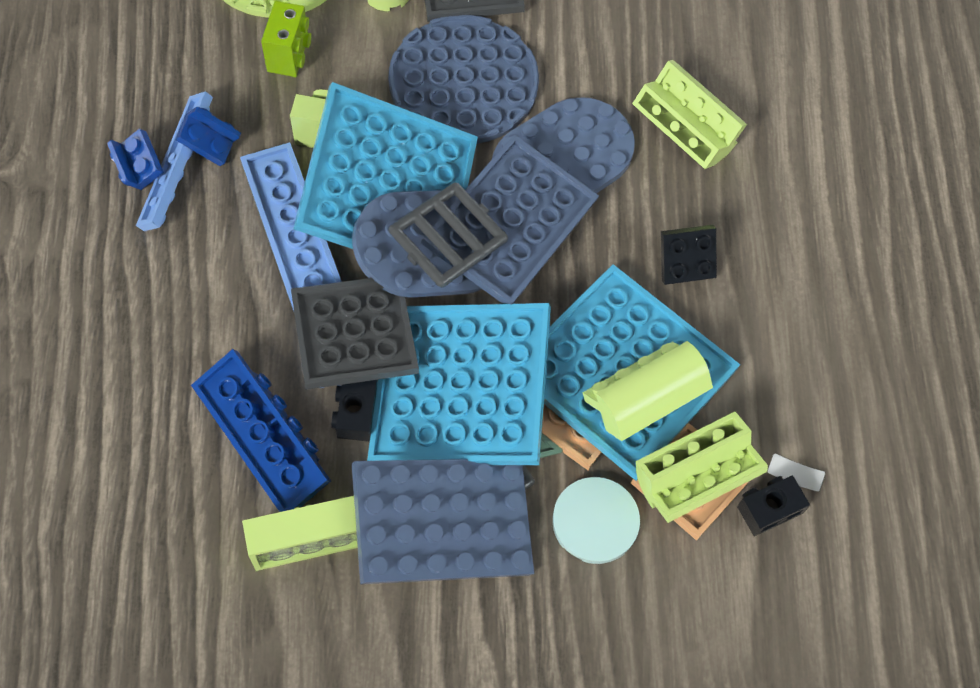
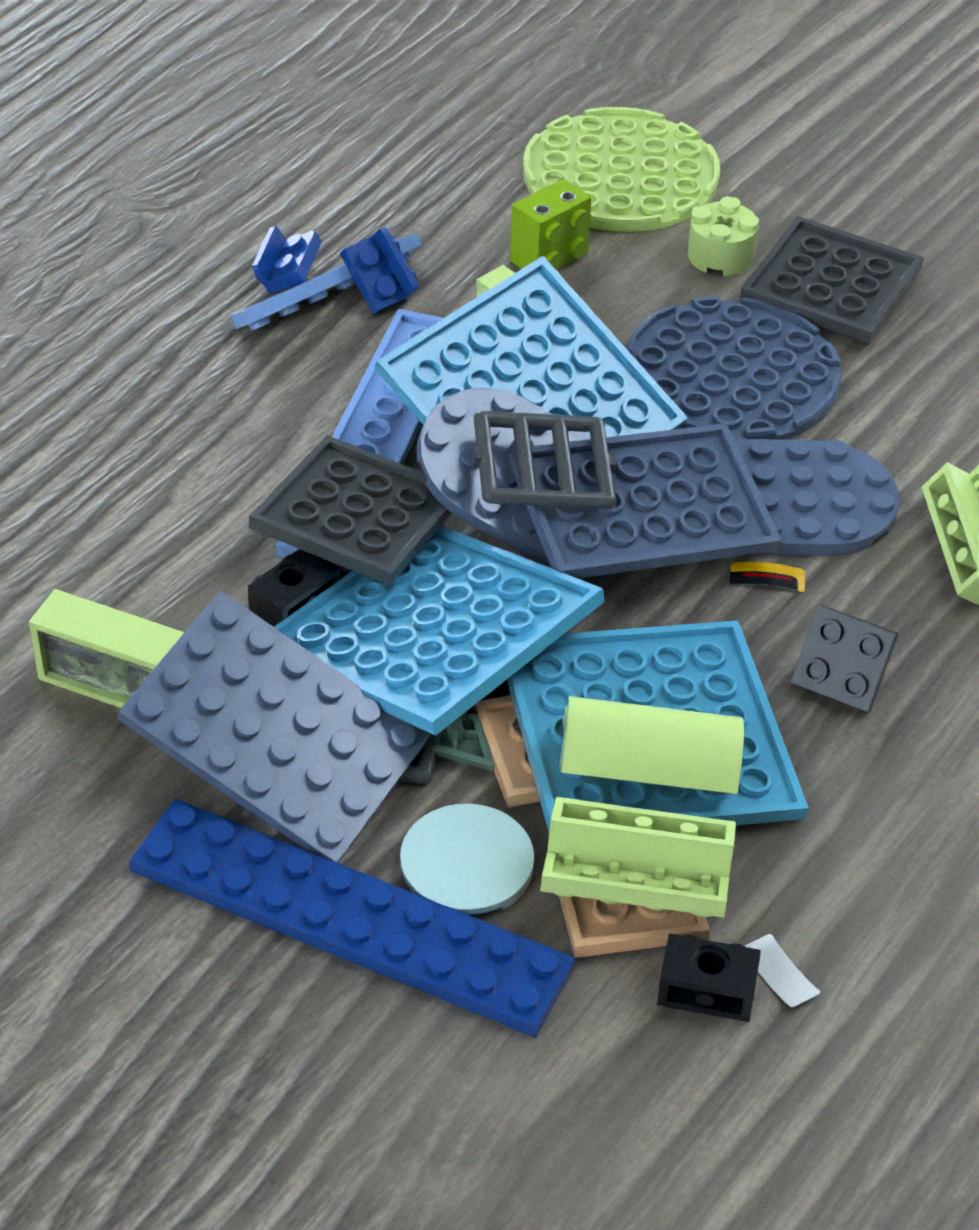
camera: 40 degrees right, 20 degrees down
(262, 431) = (174, 544): blue plate -> none
(562, 599) = (355, 916): none -> blue plate
(597, 216) = (767, 574): none -> sticker

